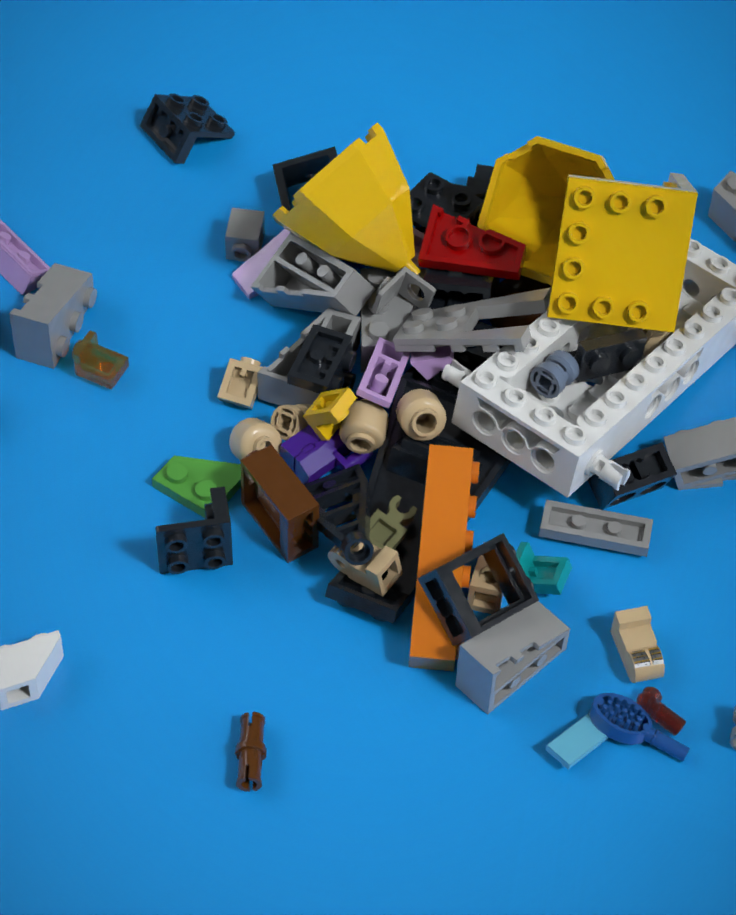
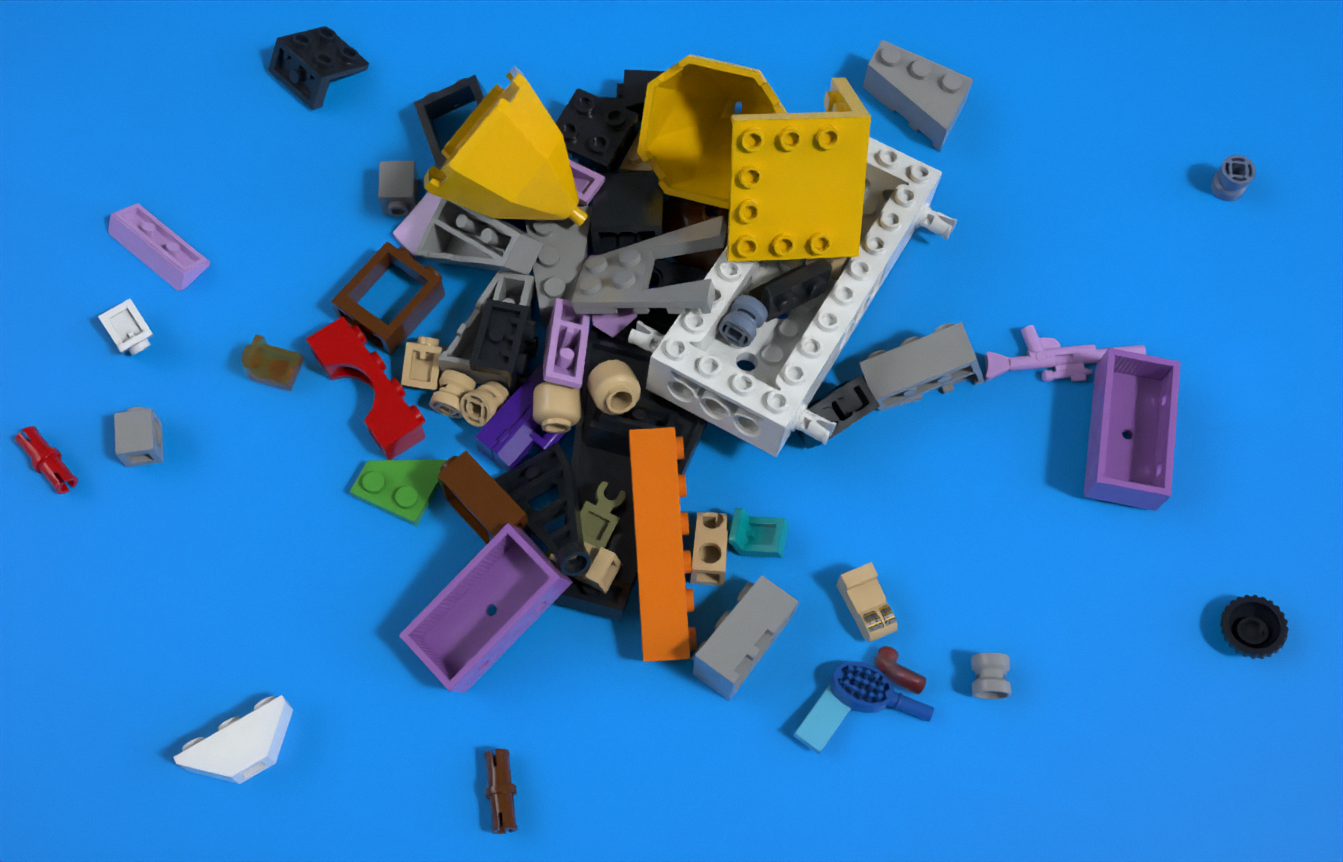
camera: 10 degrees left, 15 degrees up
(52, 315) = (214, 317): light grey wedge -> none
(169, 365) = (343, 355): none -> red arch
(198, 345) = (393, 335): none -> reddish brown window
(199, 542) = (417, 567): black bracket -> none
(253, 435) = (448, 434): tan head -> none
(264, 404) = (453, 388): none -> tan wheel
(286, 557) = (456, 631): none -> medium lavender piece
(329, 411) = (519, 397): yellow bracket -> none
(401, 285) = (571, 233): light grey bracket -> none
(451, 602) = (678, 608): black window -> none
(464, 248) = (631, 182): red wing -> none
(596, 528) = (806, 473): light grey plate -> none

